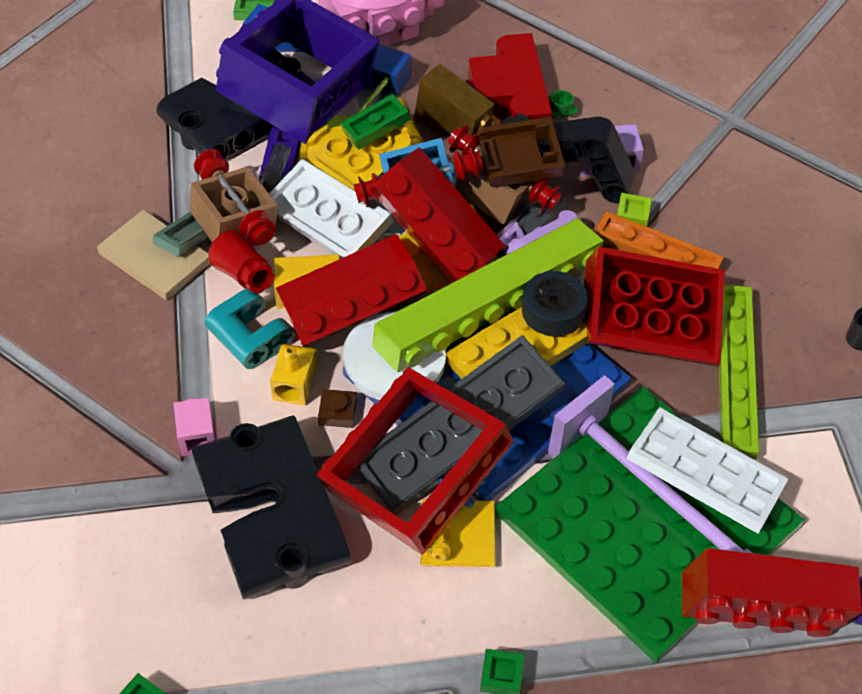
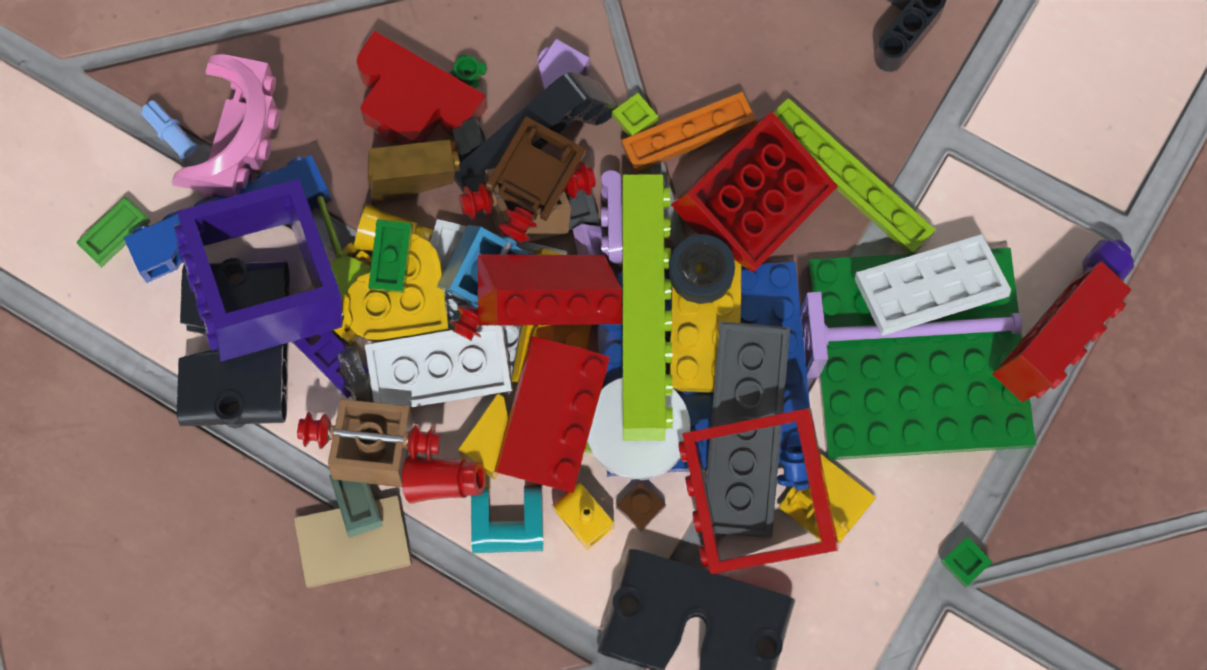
camera: 50 degrees left, 20 degrees up
(193, 423) = (574, 632): bright pink brick -> none

